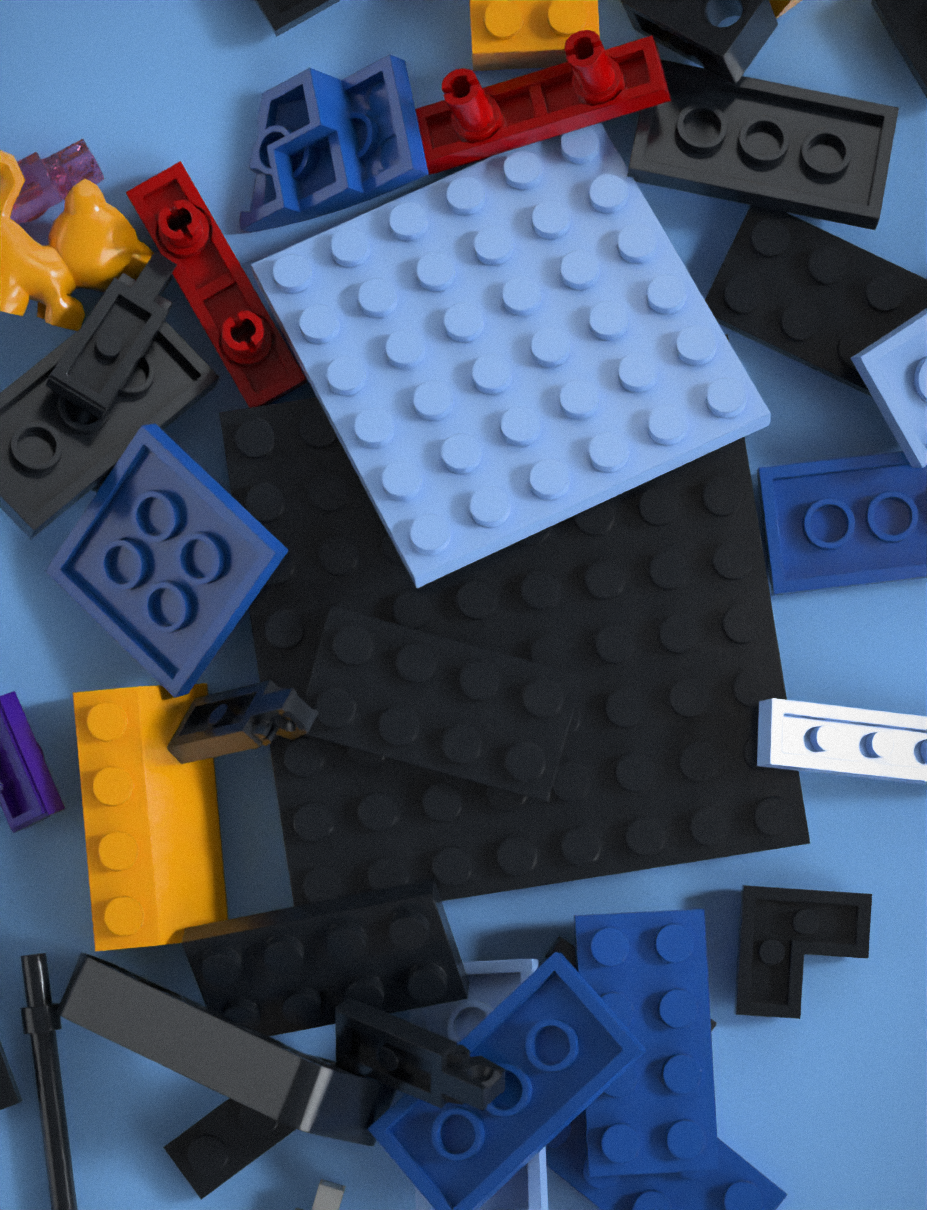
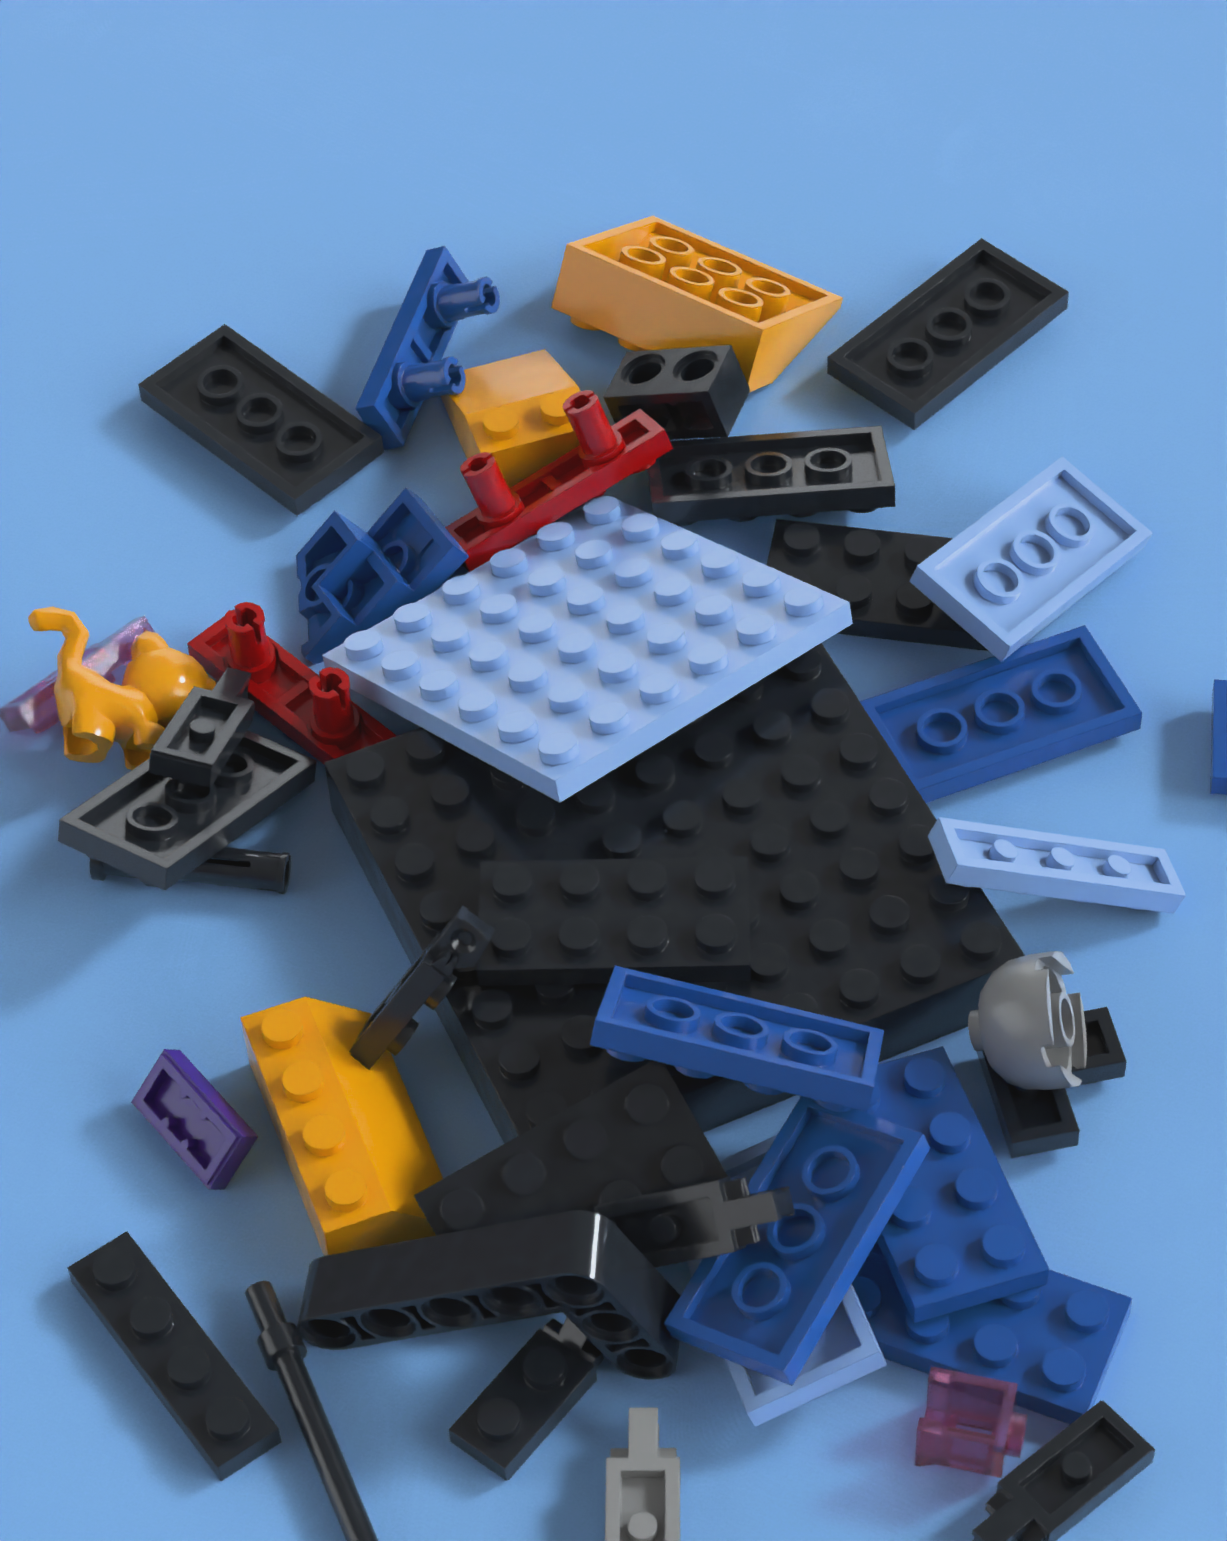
camera: 15 degrees left, 35 degrees down
(166, 560) = (305, 890): blue plate -> none
(508, 897) = (738, 1039): none -> blue plate
(786, 924) = (1031, 1023): none -> light grey cylinder

